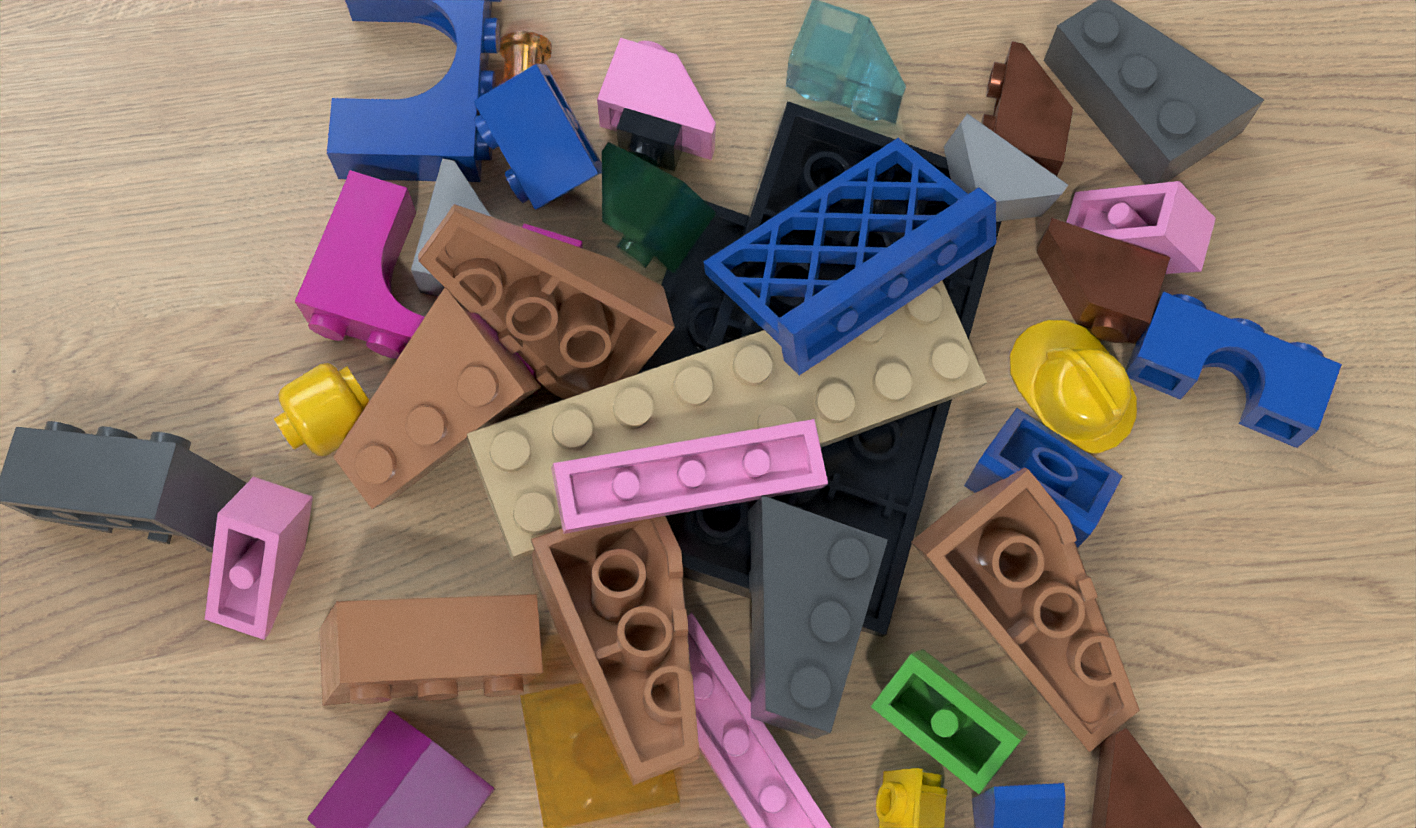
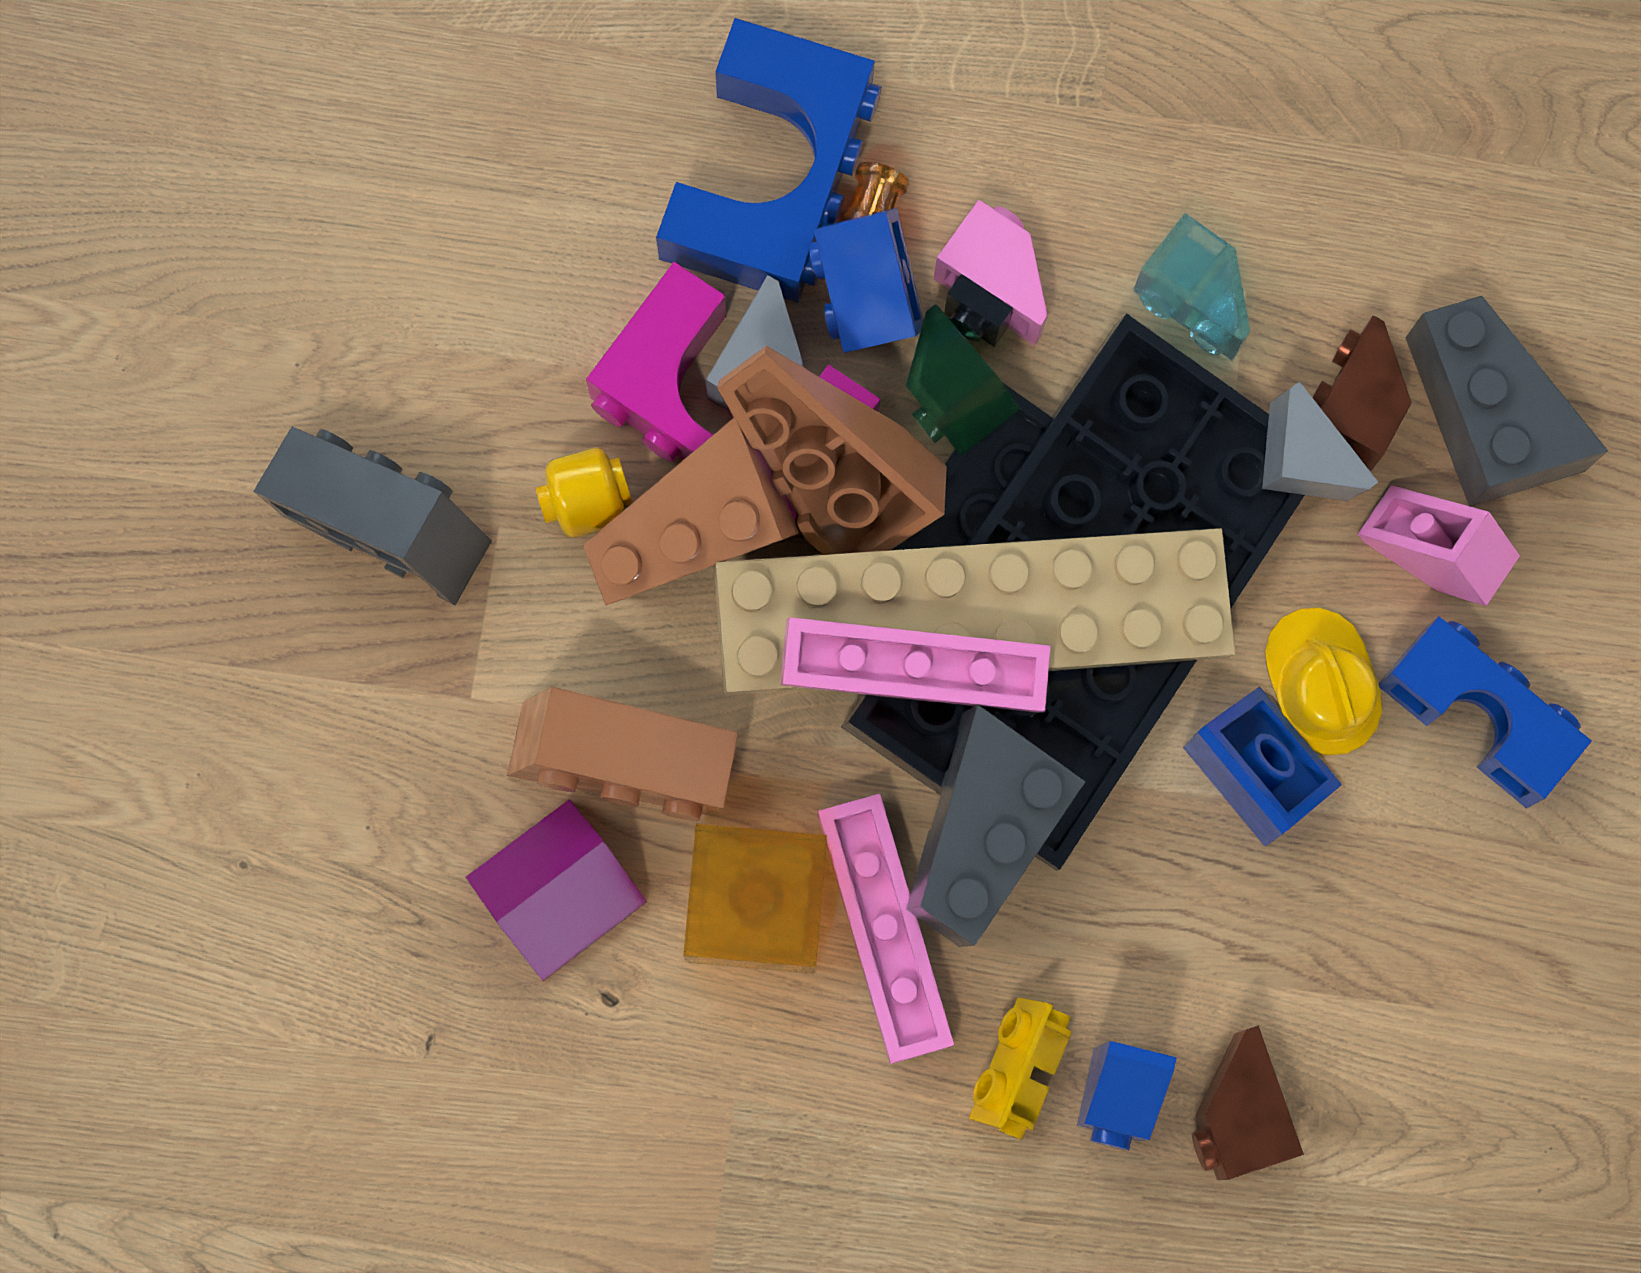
camera: 15 degrees right, 5 degrees up
(256, 555) = (484, 616): bright pink slope -> none
(626, 631) = (811, 792): nougat wedge -> none
(882, 276) = (1171, 525): blue fence -> none
(949, 719) = (1093, 967): bright green brick -> none
(1023, 580) = (1209, 865): nougat wedge -> none
(1103, 280) = (1386, 586): copper slope -> none

